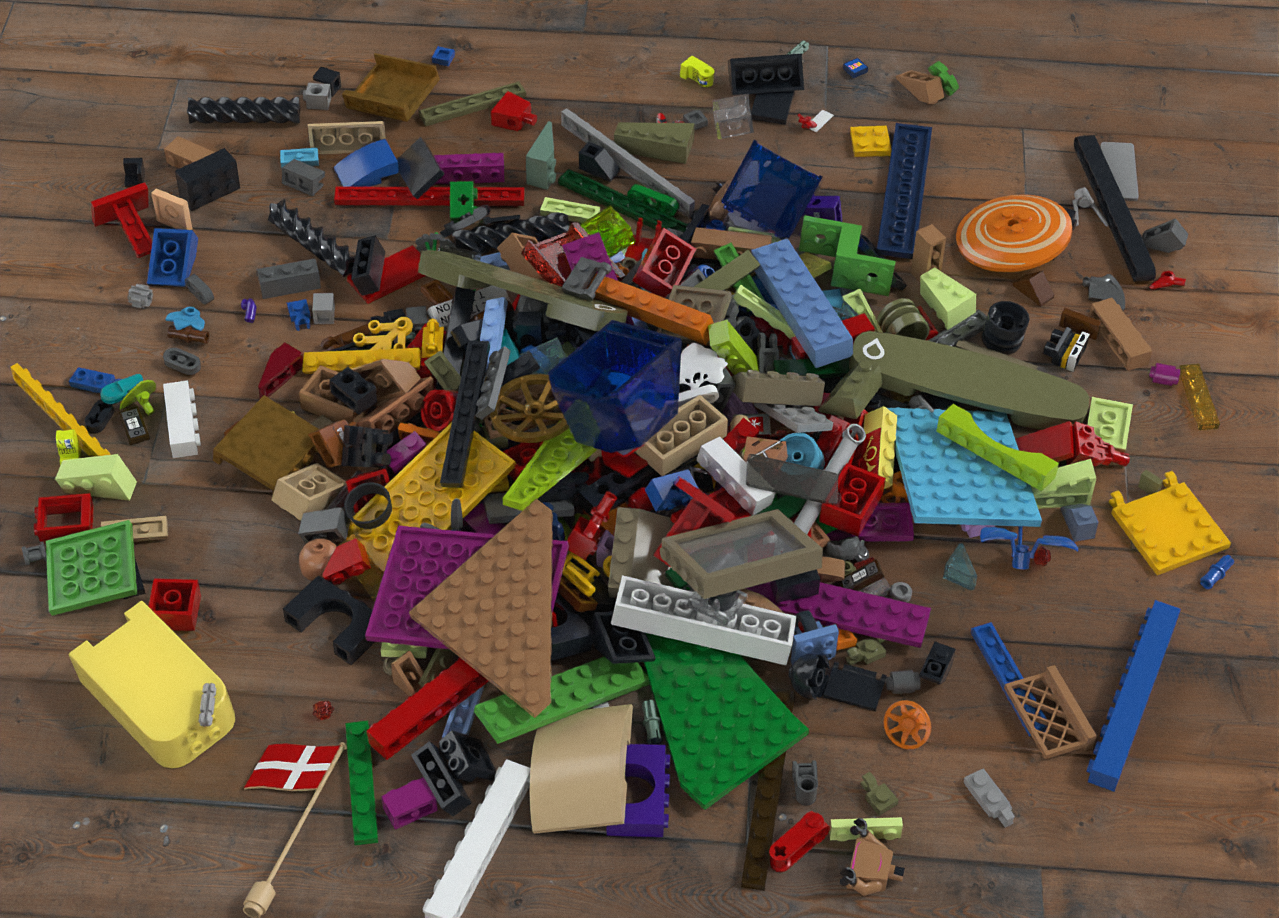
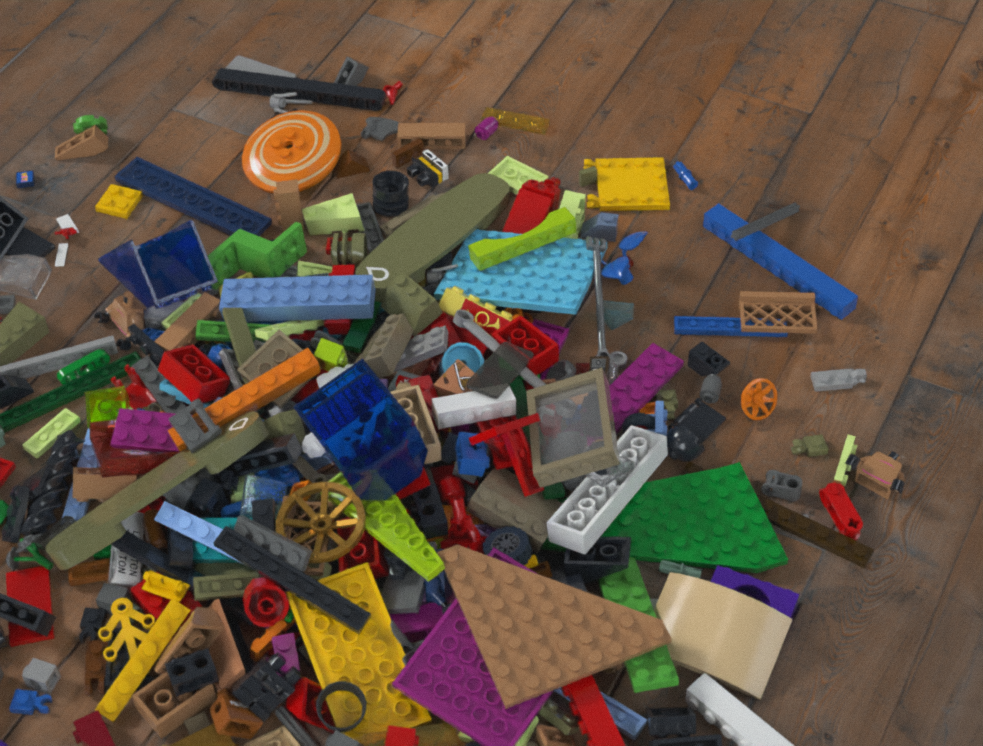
camera: 65 degrees left, 0 degrees up
(587, 562) = (511, 542): none -> black wheel
(780, 132) = (61, 254): none -> white sticker
(1015, 508) = (596, 248): none -> dark grey hinge
(1180, 660) = (765, 221): none -> dark grey axle

